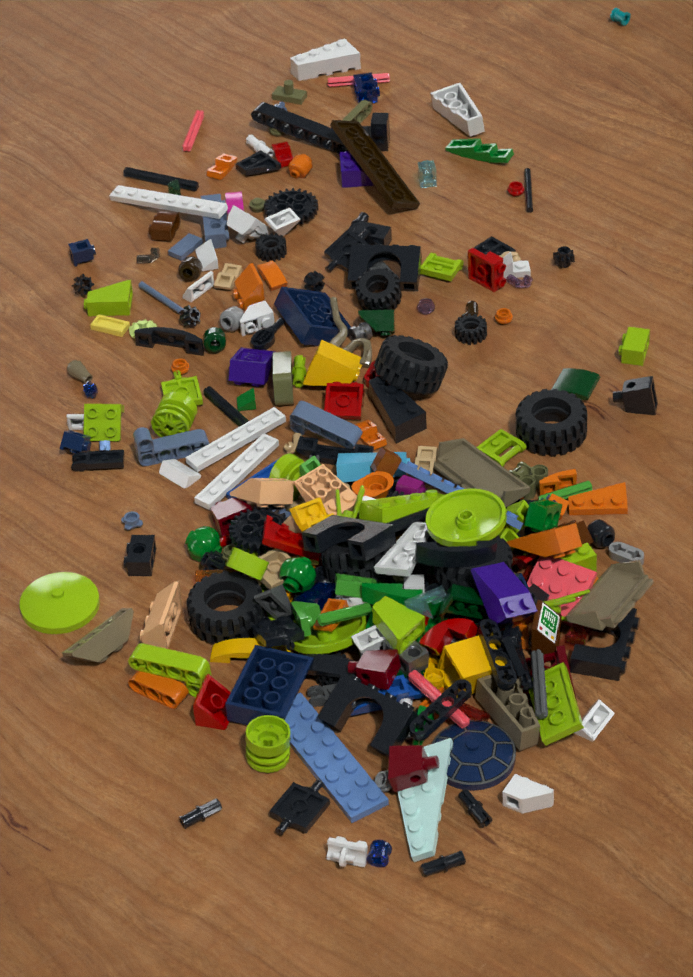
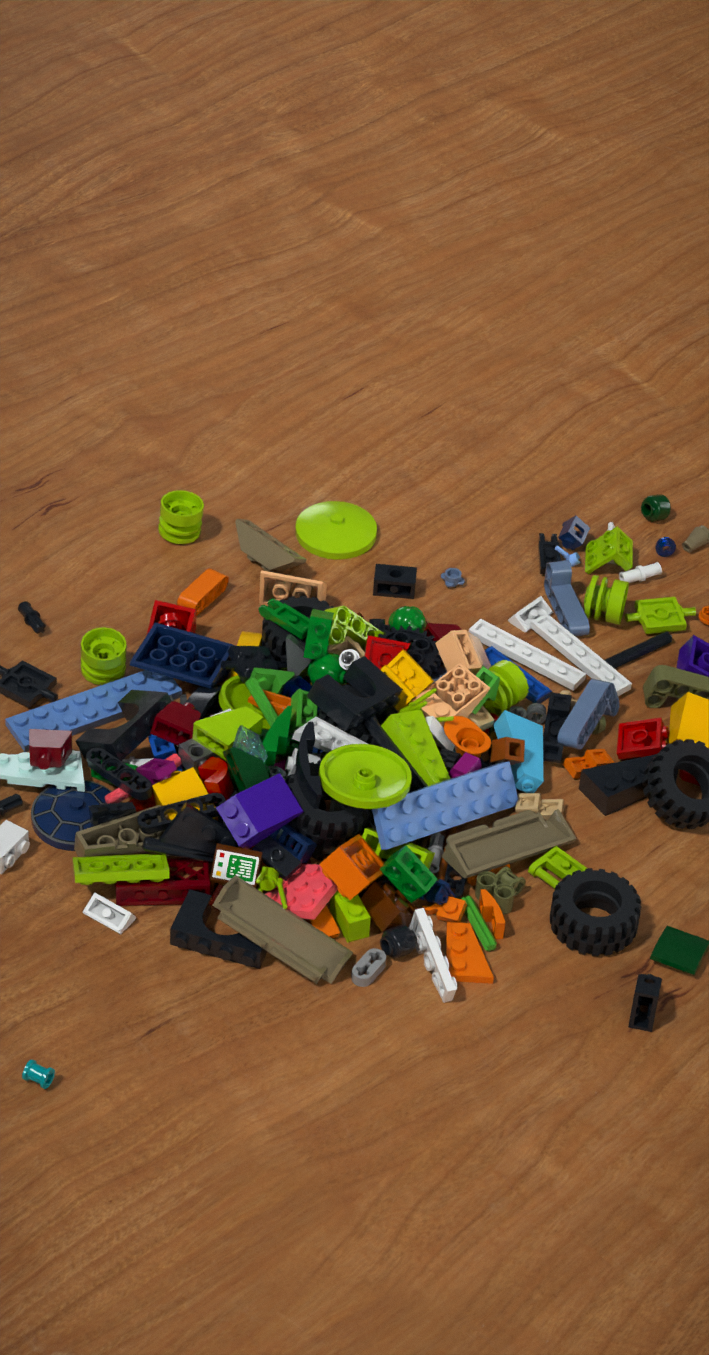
camera: 85 degrees right, 0 degrees up
(37, 394) = (656, 507): none -> dark green head
(54, 704) = (180, 517): none -> lime wheel
(128, 405) = (641, 573): none -> white pin
(171, 665) = (214, 590): lime beam -> none
(220, 695) = (169, 619): none -> red plate
(230, 600) = (285, 617): none -> green hinge
(246, 401) = (646, 666): green slope -> none
(273, 563) = (318, 634): none -> green brick
(297, 548) = (348, 657): none -> white cone
(442, 675) = (157, 770): none -> magenta slope
(497, 712) = (107, 812): none -> black wing
(539, 685) = (146, 853): dark grey axle -> none
(617, 509) = (433, 959): none -> white wing

